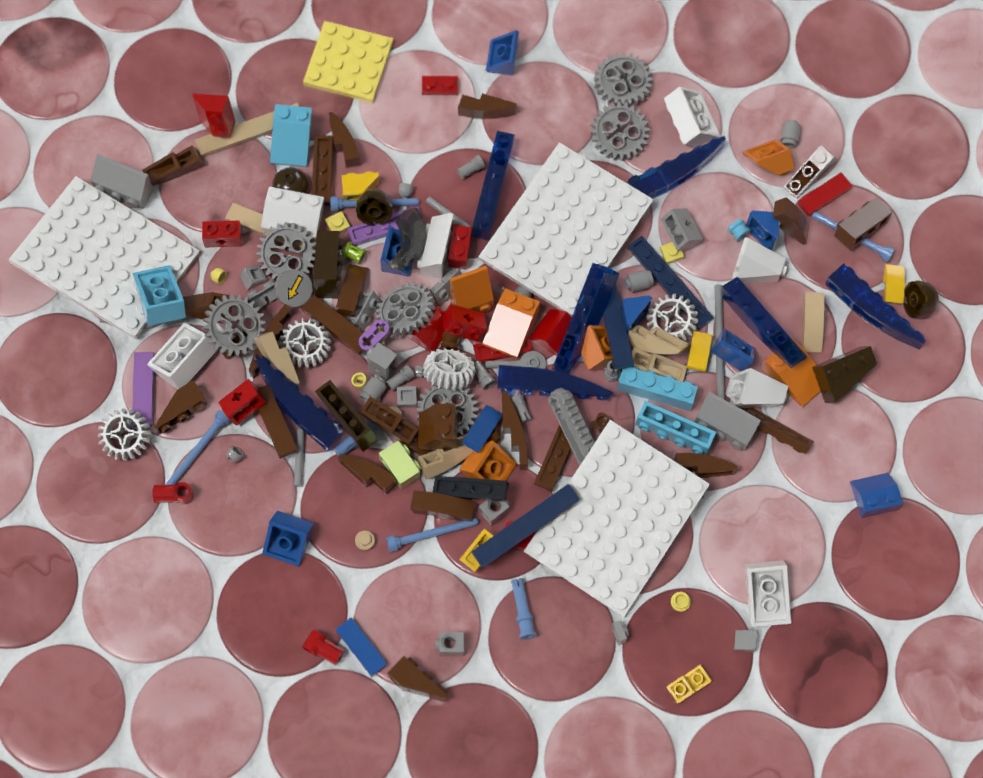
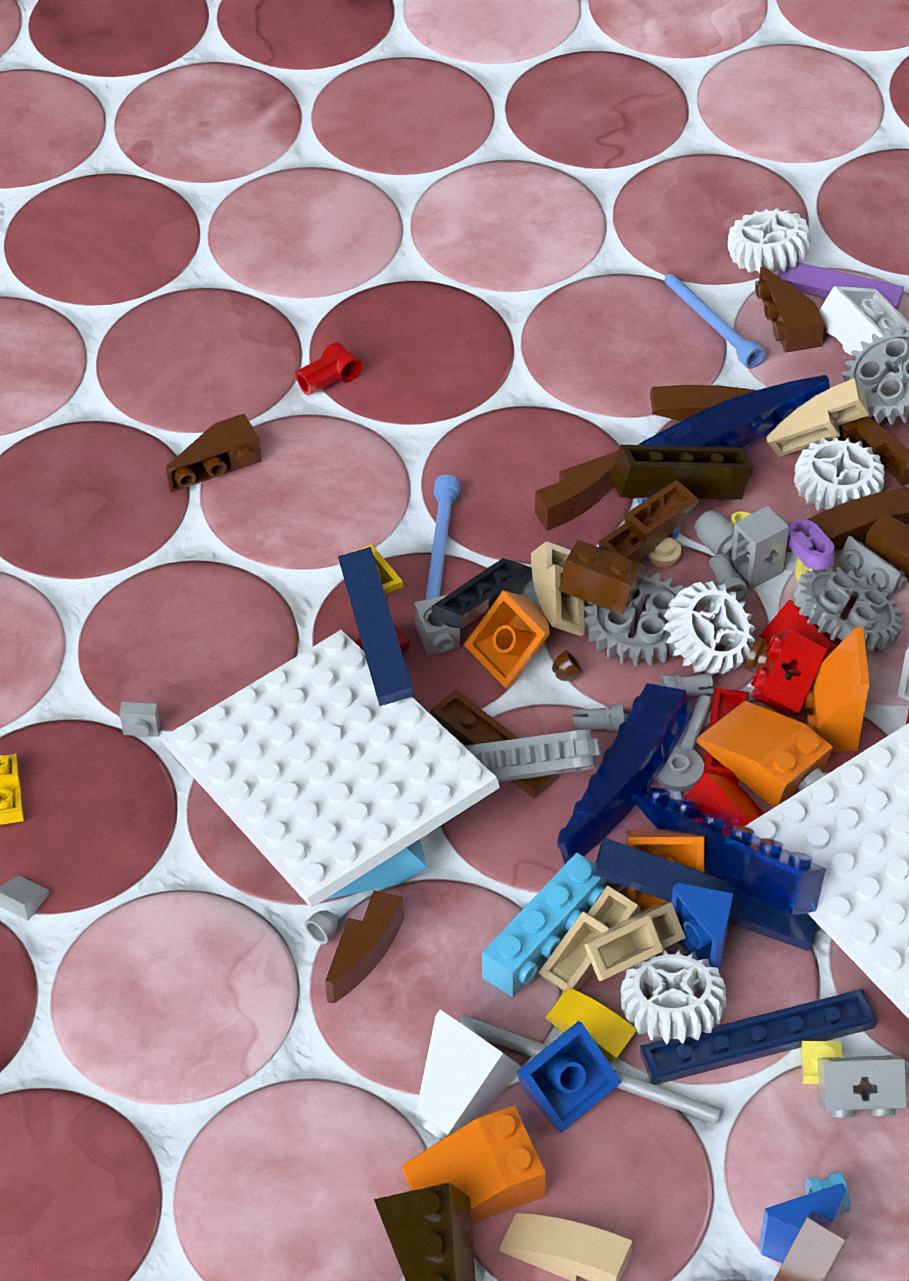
camera: 115 degrees right, 20 degrees down
(171, 493) = (651, 274): red piece -> none
(235, 454) = (690, 351): light grey hinge -> none
(242, 402) = (761, 365): red brick -> none
(287, 538) = (521, 374): blue slope -> none
(299, 458) = (630, 421): light grey bar -> none
(361, 647) = (307, 414): blue tile -> none
(364, 540) = (470, 462): tan plate -> none
(399, 464) = (571, 523): yellowish green piece -> none
(406, 396) = (689, 571): light grey plate -> none
(442, 291) = (882, 698): light grey hinge -> none
(442, 506) = (478, 551): reddish brown slope -> none
(457, 637) = (247, 508): light grey brick -> none
(482, 429) = (581, 640): blue tile -> none
(512, 426) = (558, 695): reddish brown slope -> none
(524, 617) = (237, 609): medium blue pin -> none
(601, 417) = (515, 819): reddish brown plate -> none
(638, 280) = (778, 977): light grey brick -> none
(675, 428) = (451, 919): medium azure brick -> none
(680, 601) = (143, 826): light yellow plate -> none
(728, 421) = (407, 1017): light grey slope -> none
(758, 264) = (737, 1184): white slope -> none
(761, 322) = (597, 1130): clear blue slope -> none
(767, 593) = (84, 954): white slope -> none
(781, 432) = (367, 1094): reddish brown plate -> none
(876, 495) = (161, 1211): blue slope -> none

